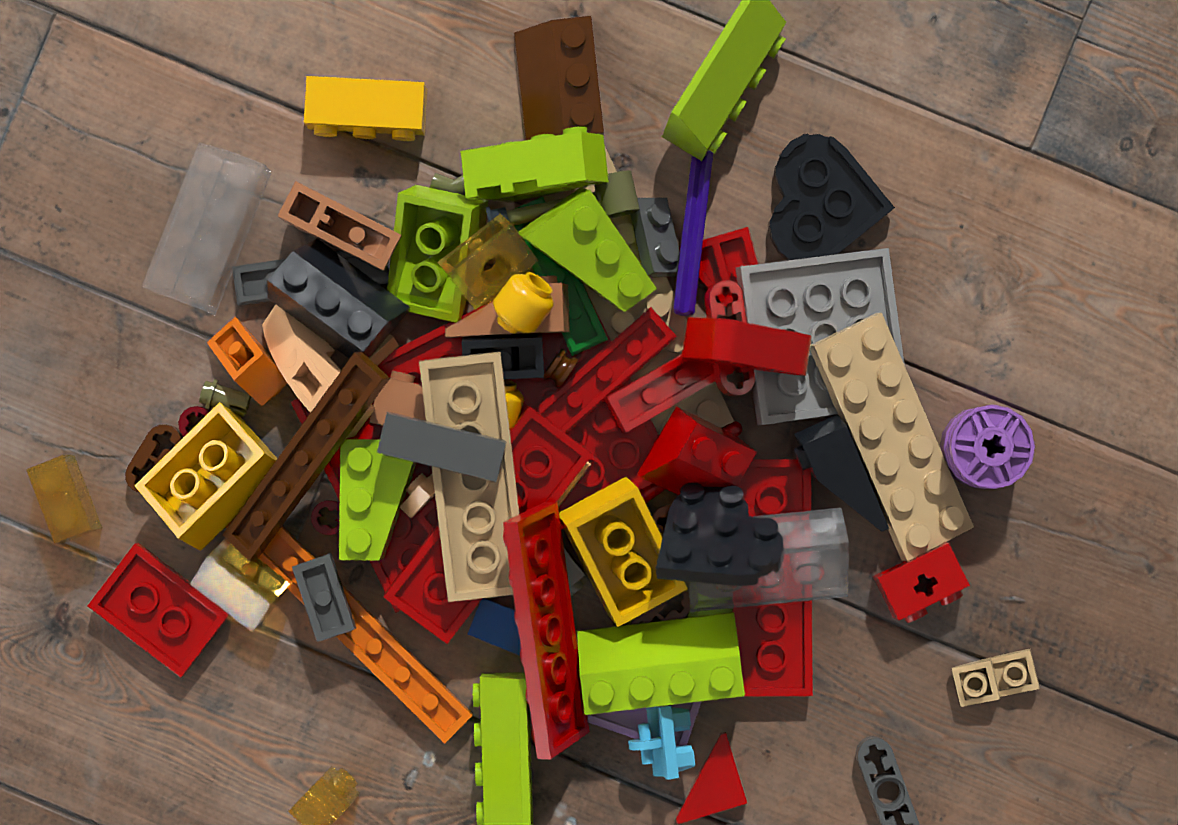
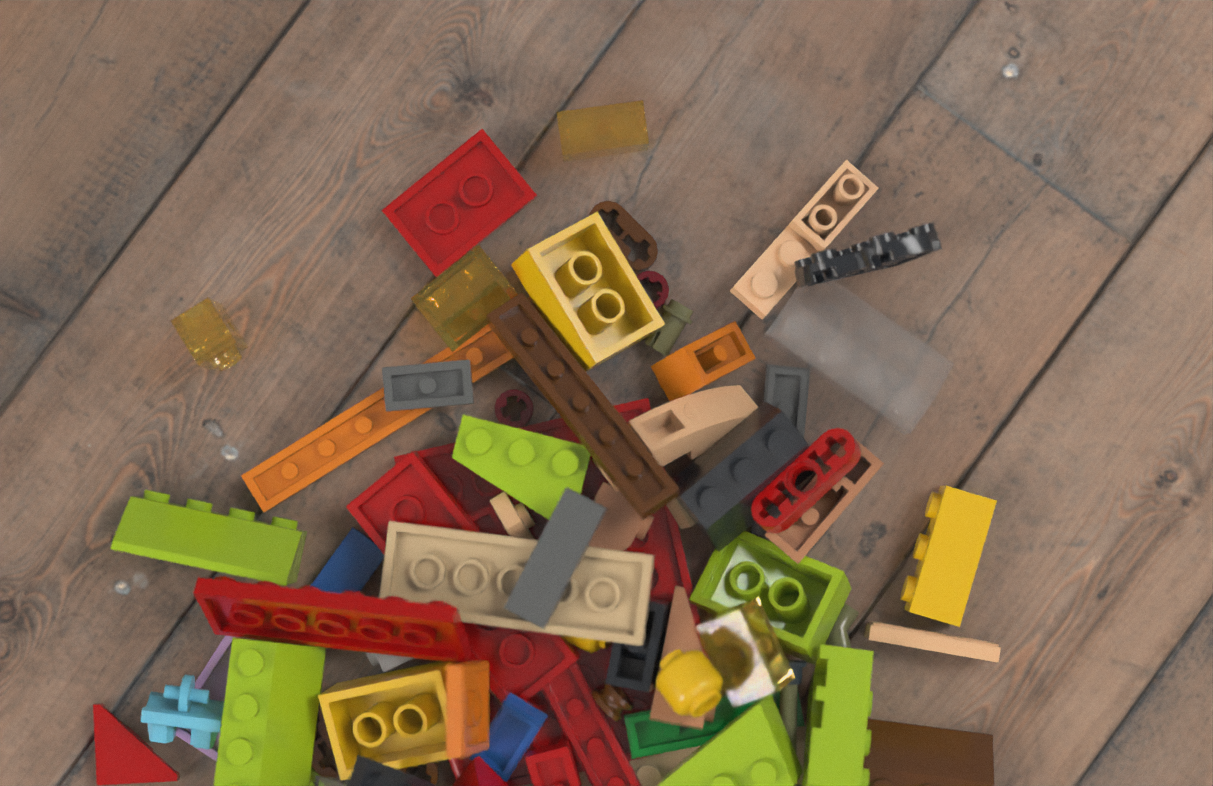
camera: 95 degrees right, 0 degrees up
(111, 226) = (868, 256): none -> black plate
(118, 298) = (805, 235): none -> light nougat slope
(342, 241) = (806, 499): none -> red beam
(444, 103) = (932, 641): none -> light nougat tile
(592, 492) = (467, 708): none -> orange plate
(611, 450) = (511, 735): none -> blue tile

